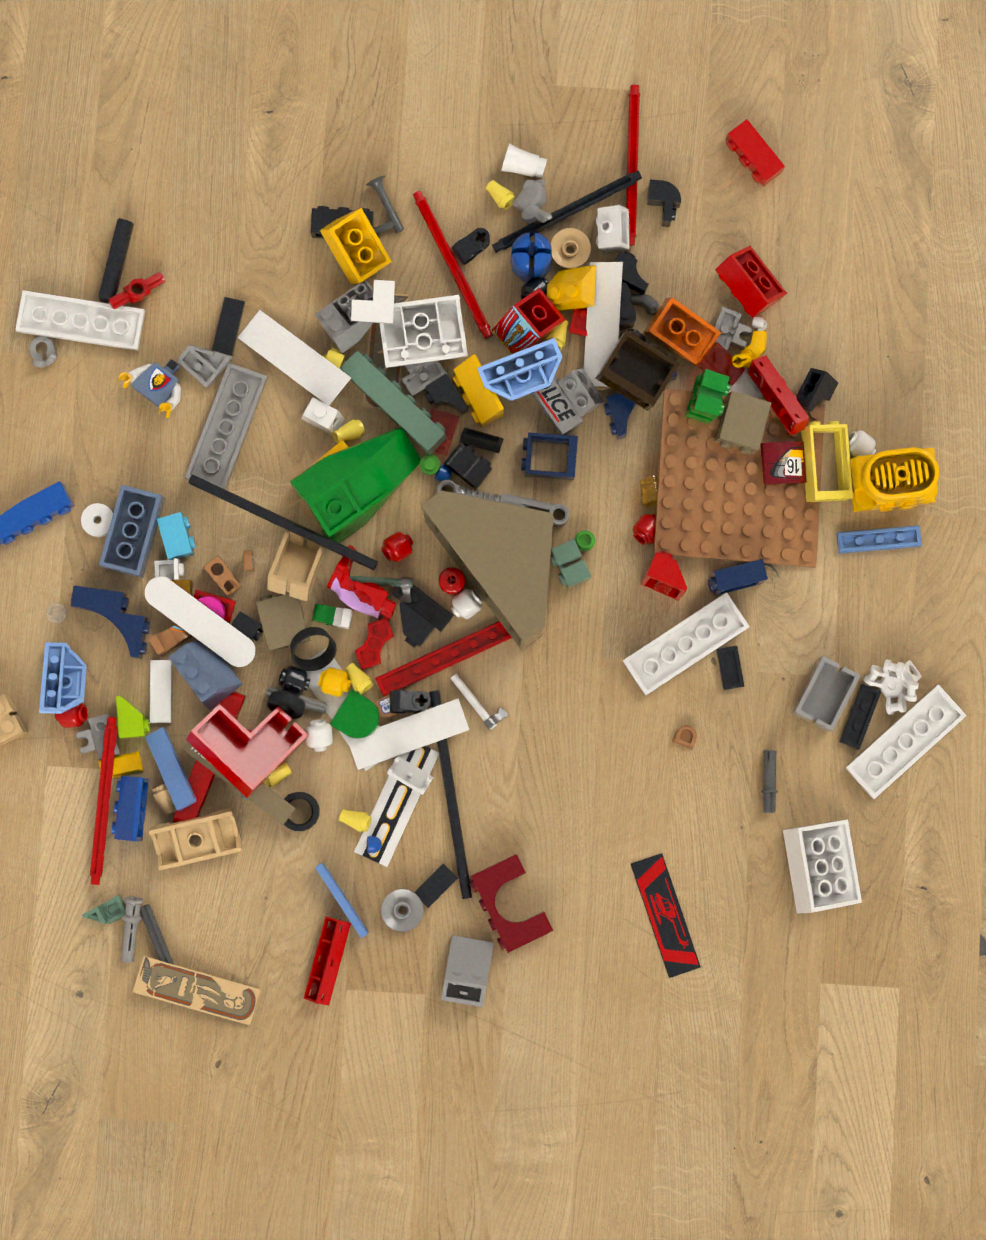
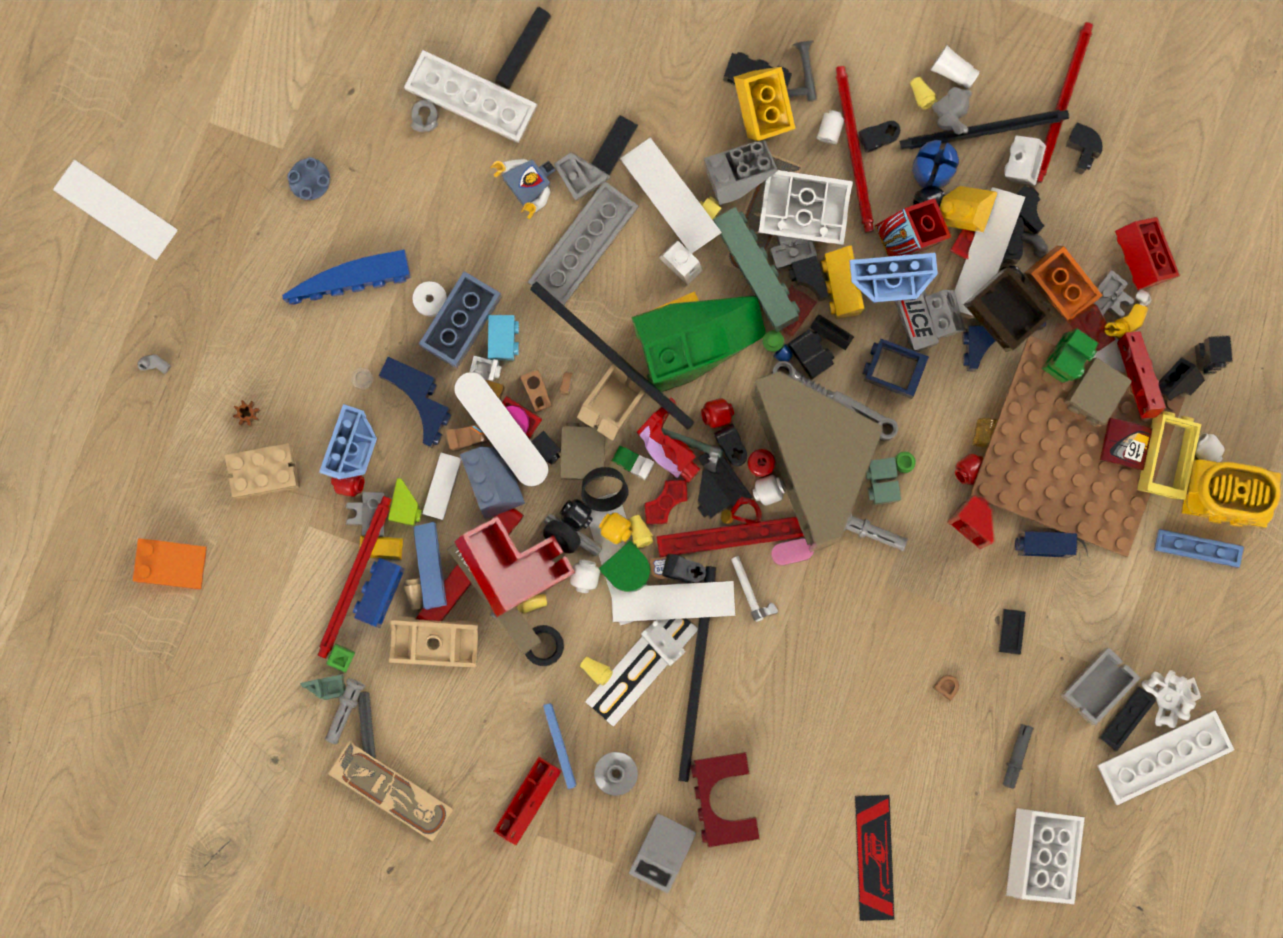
camera: 20 degrees right, 0 degrees up
(112, 880) = (340, 657): none -> bright green tile
(128, 295) = (525, 84): red axle -> none
(350, 431) = (705, 284): light yellow cone -> none
(373, 844) = (606, 700): blue hinge -> none
(378, 310) = (769, 173): white tile -> none
(418, 570) = (730, 441): none -> black piece
(424, 251) = (830, 127): none -> white brick
(436, 639) = (728, 515): none -> red piece
(436, 885) = (656, 759): black tile -> none
(504, 655) = (791, 552): none -> bright pink tile
(559, 334) = (940, 250): light yellow cone -> none
(567, 613) = (864, 529): none -> light grey pin
(570, 238) = (978, 157): tan dish -> none
(685, 644) = (975, 594): white plate -> none
(754, 153) = (1189, 126): red brick -> none
(839, 356) = (1213, 354): none -> black arch

